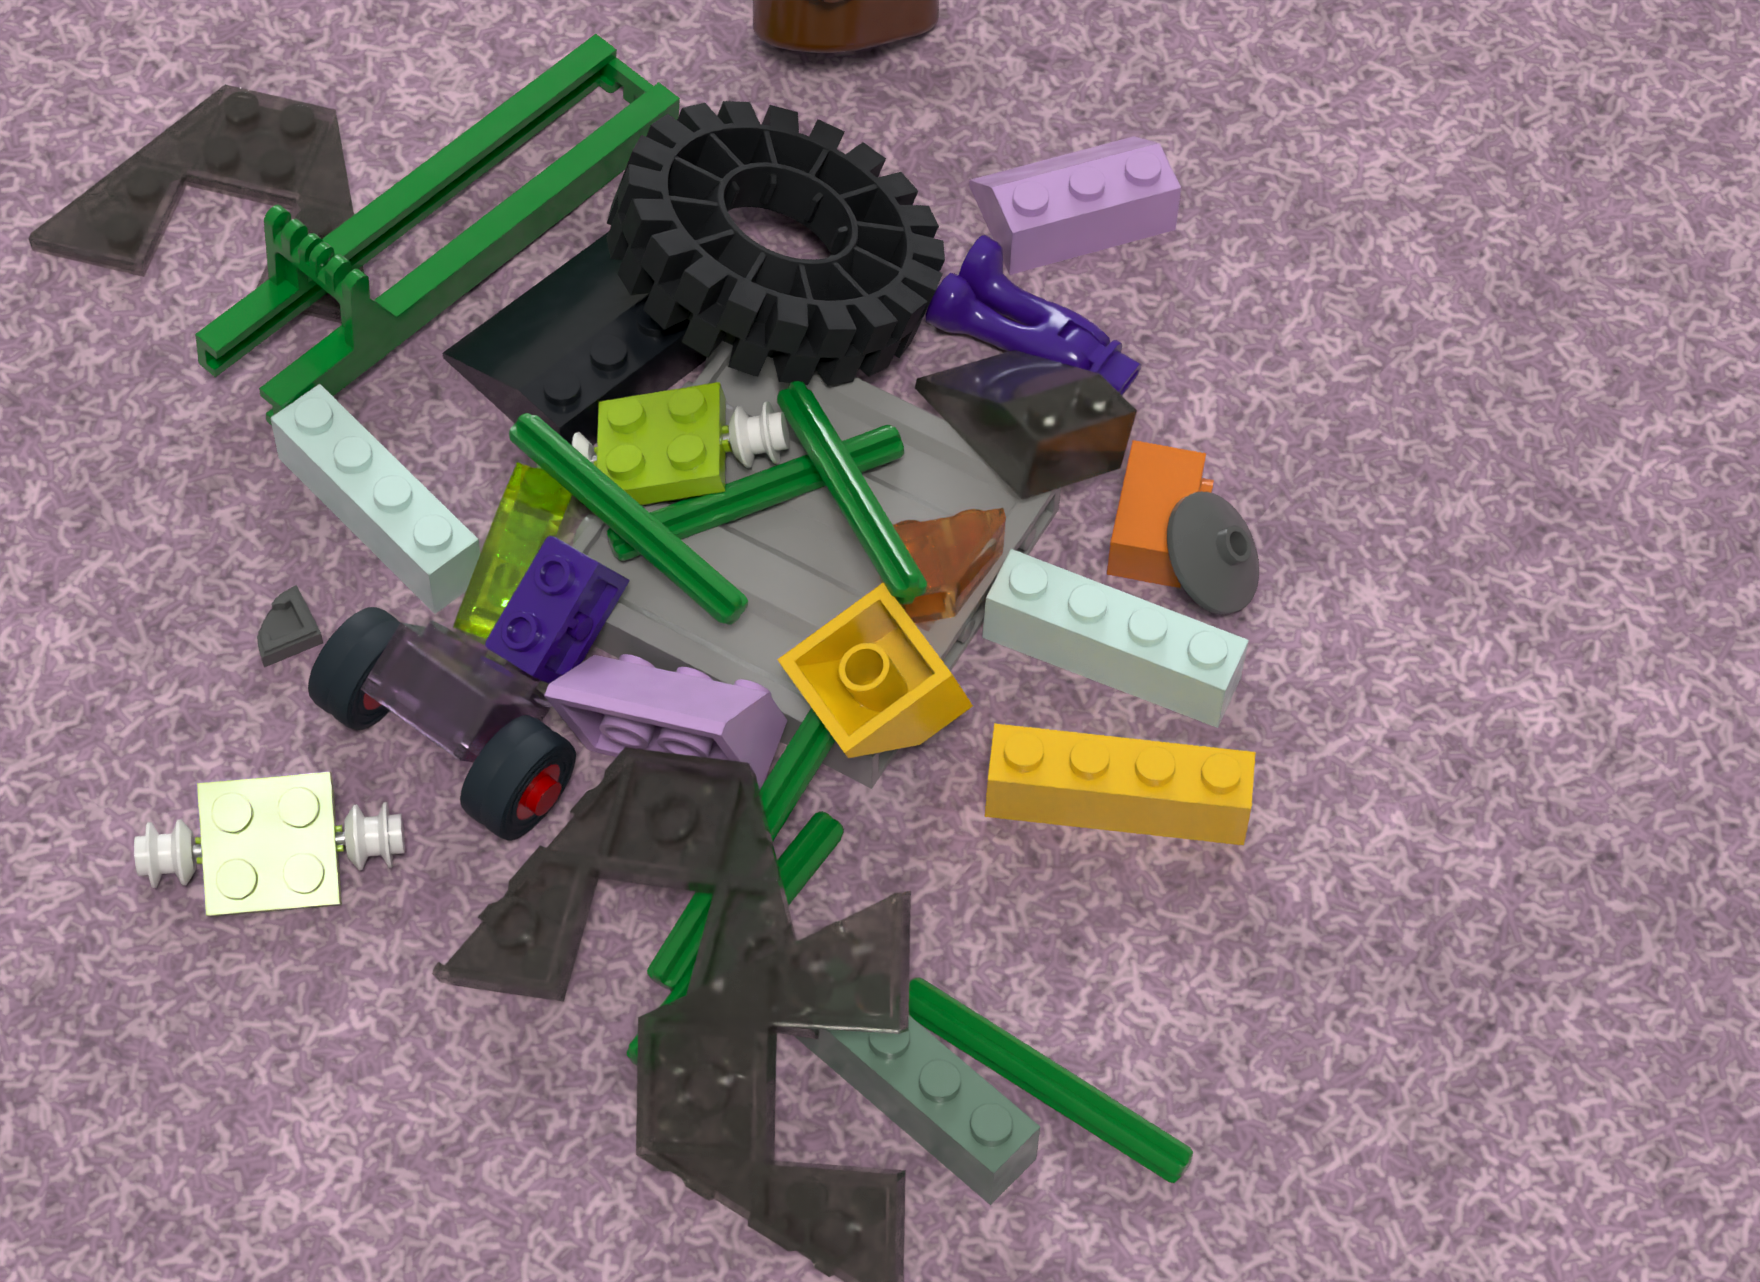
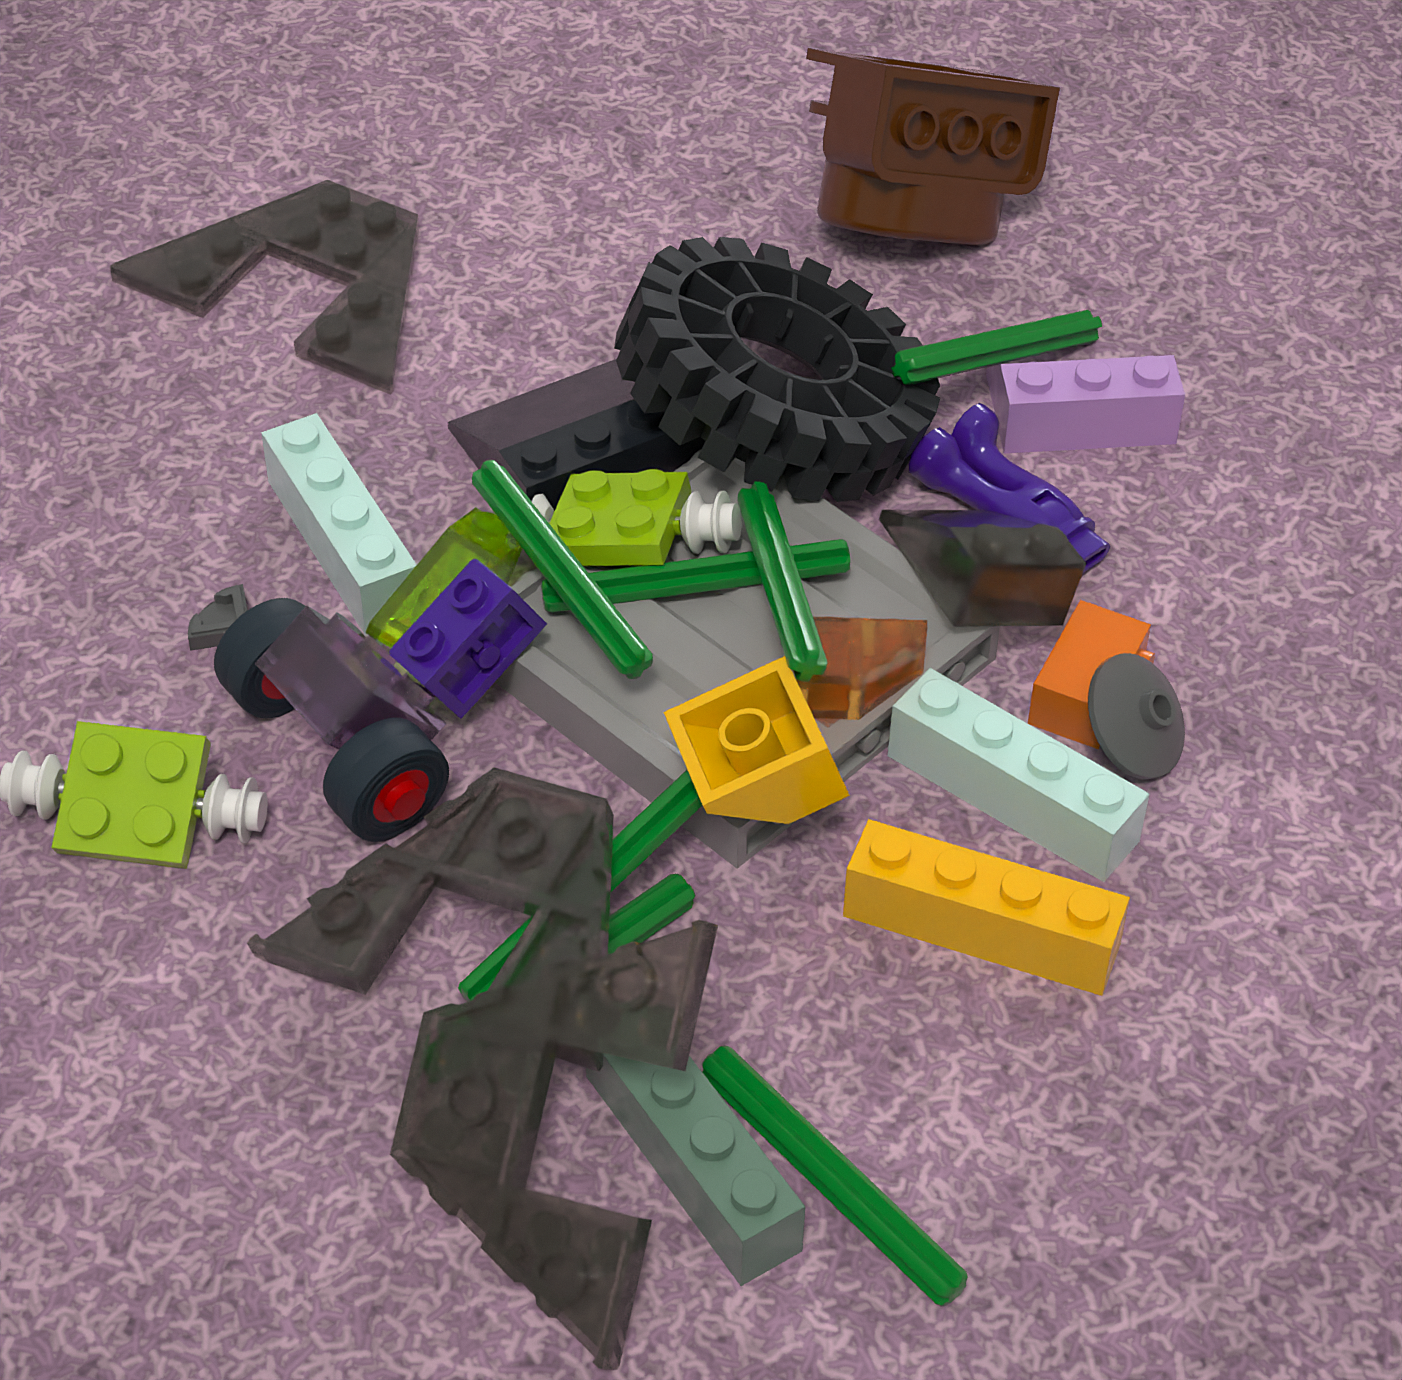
camera: 15 degrees right, 10 degrees down
(308, 267) = (345, 324): green piece -> none
(660, 710) = (541, 741): lavender slope -> none
(981, 166) = (995, 347): none -> green axle

